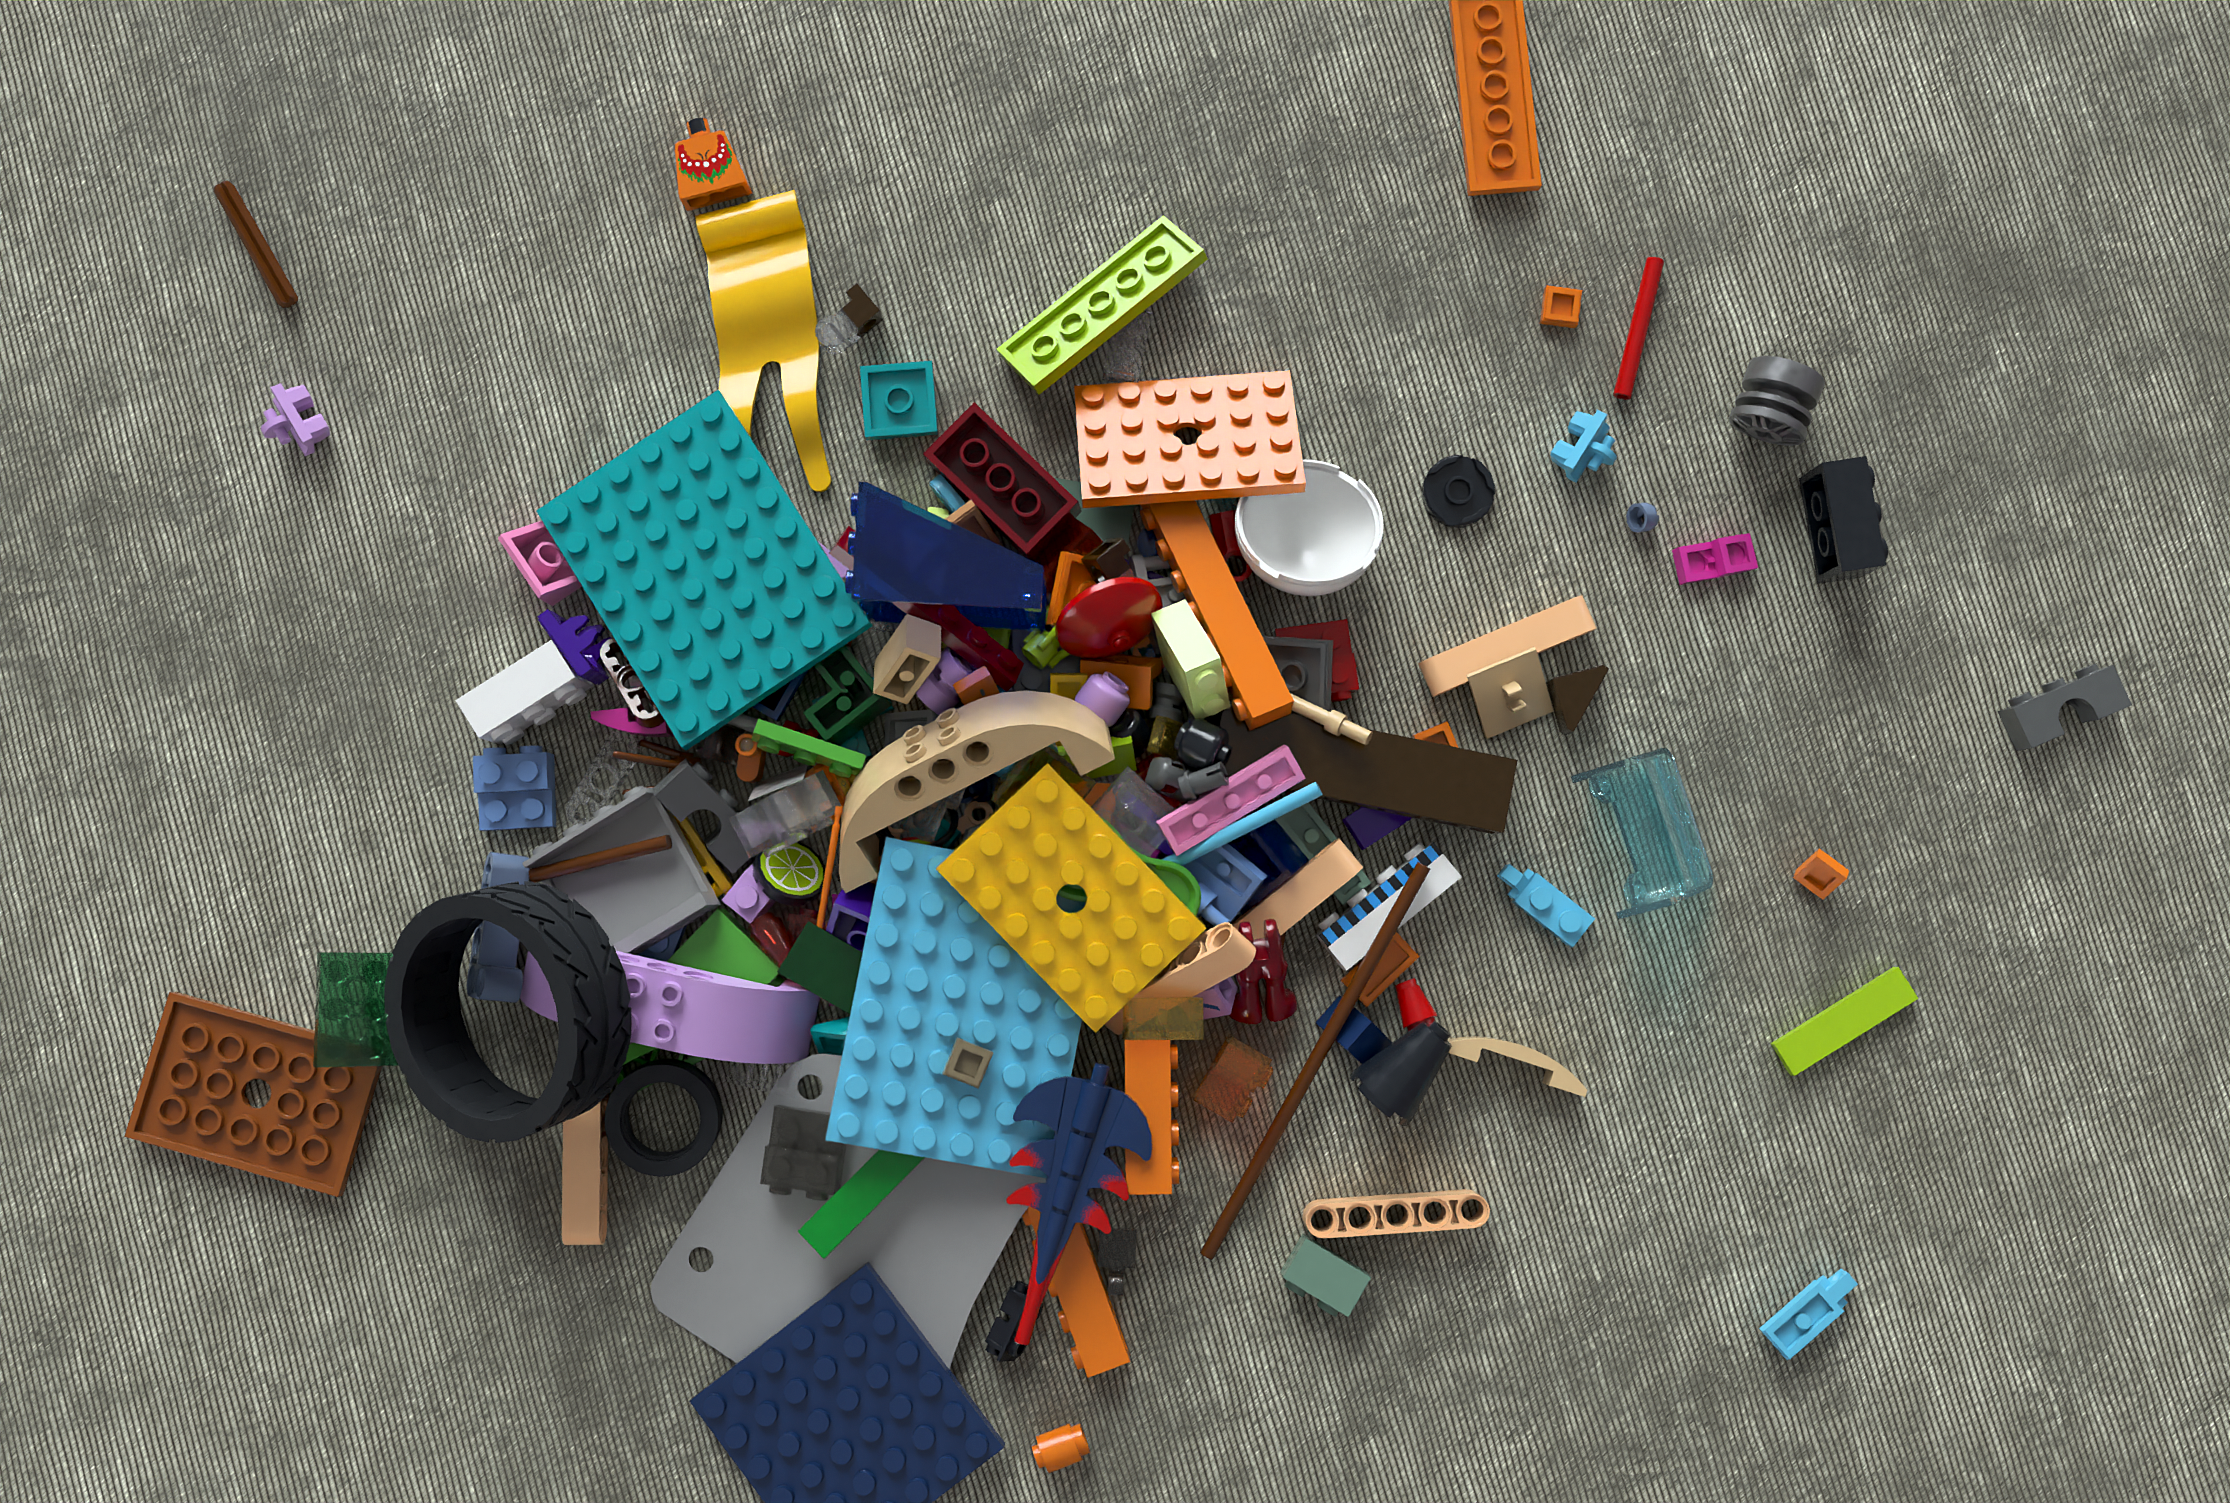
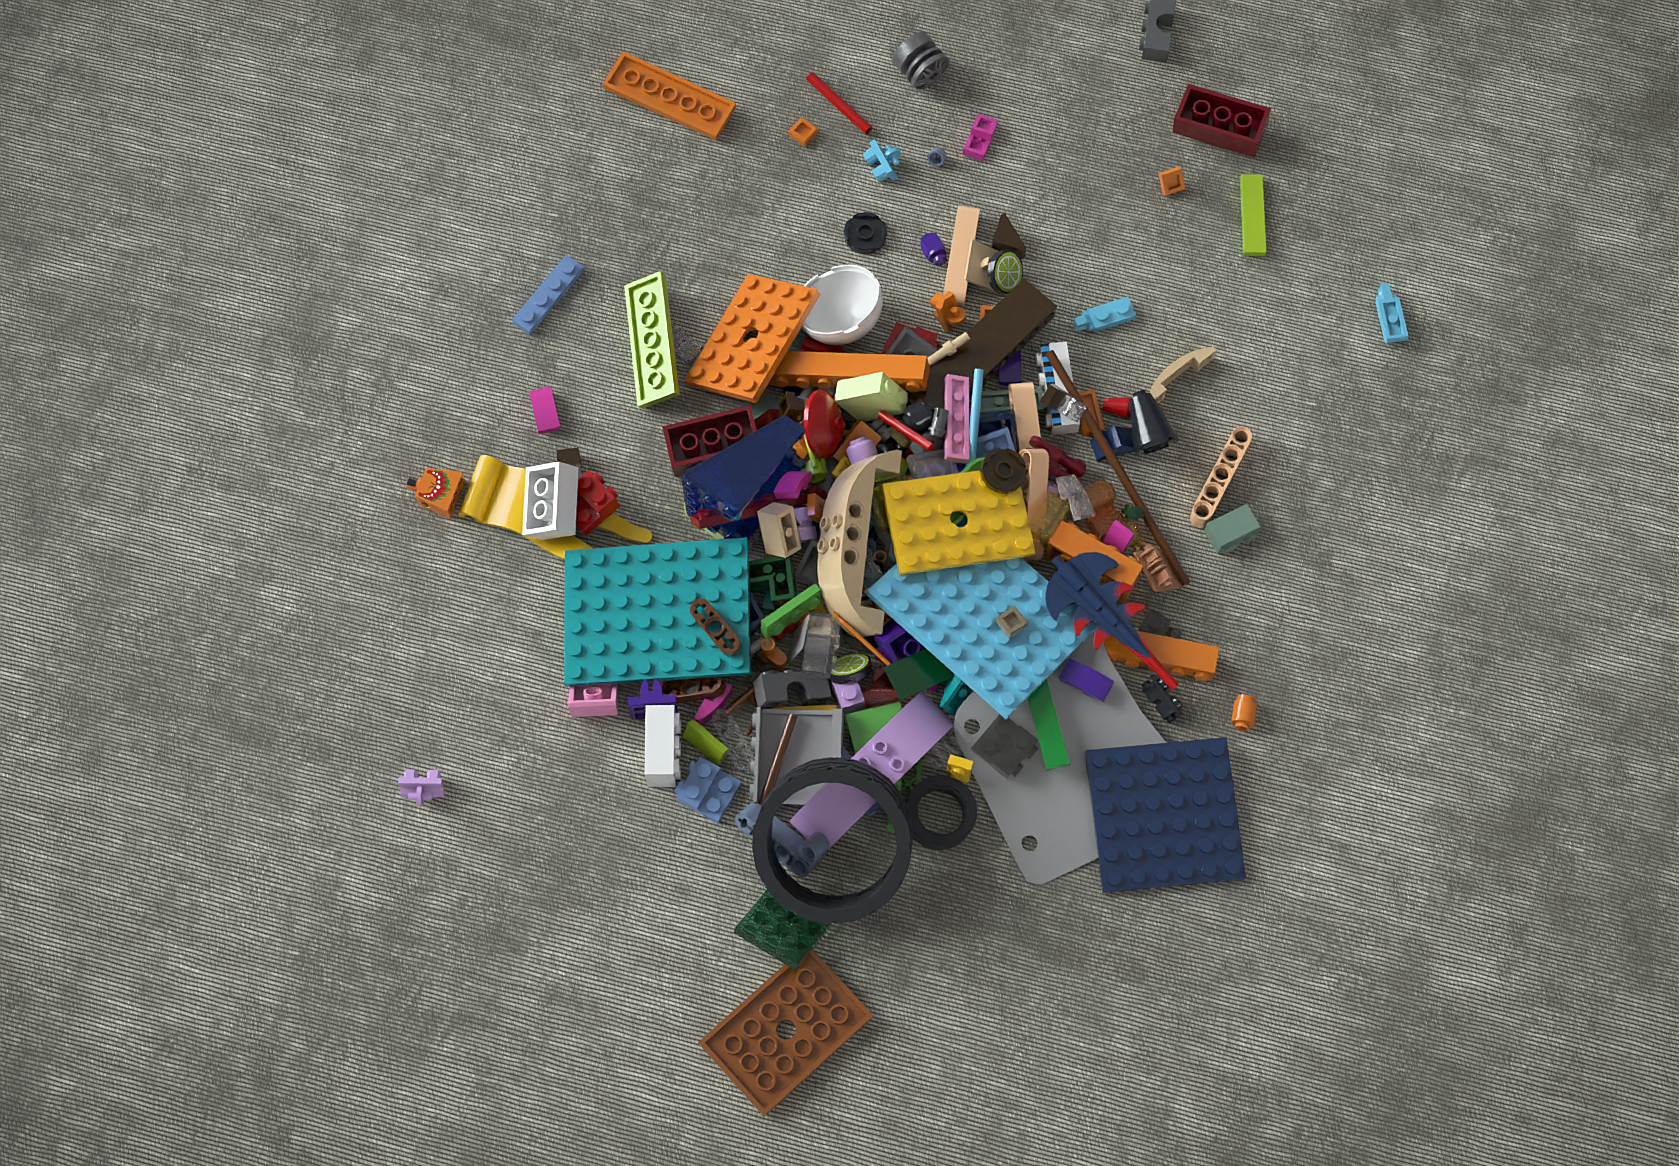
camera: 60 degrees left, 15 degrees down
(255, 244) = (306, 752): reddish brown axle -> none
(575, 745) = (705, 742): none -> lime tile
(585, 1178) = (938, 871): light nougat beam -> none
(690, 683) = (723, 632): none -> reddish brown beam
(733, 1109) = (959, 768): none -> yellow plate
(768, 325) = (550, 501): none -> white brick
(808, 376) = (594, 502): none -> red plate
(899, 400) = (631, 469): teal plate -> none
(912, 229) = (544, 410): none -> dark pink slope
(963, 1208) = (1086, 679): none -> dark purple slope
(988, 632) = (791, 484): none -> dark pink slope
(1086, 123) = (548, 295): none -> medium blue plate
(1166, 741) = (905, 430): none -> red bar
(1180, 918) = (1003, 470): none -> dark brown tile
(1194, 1208) = (1157, 569): none -> nougat hinge
(1200, 1128) = (1119, 537): none -> dark pink slope
(1219, 1032) = (1073, 490): none -> clear slope
(1227, 1141) = (1136, 543): none -> clear yellow tile
(1257, 1124) = (1132, 512): none -> dark green plate
(1356, 933) = (1063, 402): none -> leg
(1403, 682) = (947, 310): none -> orange hips
(1492, 601) = (933, 249): none -> dark purple arm
(1517, 725) = (1005, 271): none -> tile
(1656, 829) = (1098, 242): clear light blue windscreen -> none
(1843, 520) = (1000, 67): black brick -> none
(1967, 889) = (1221, 120): none -> dark red brick

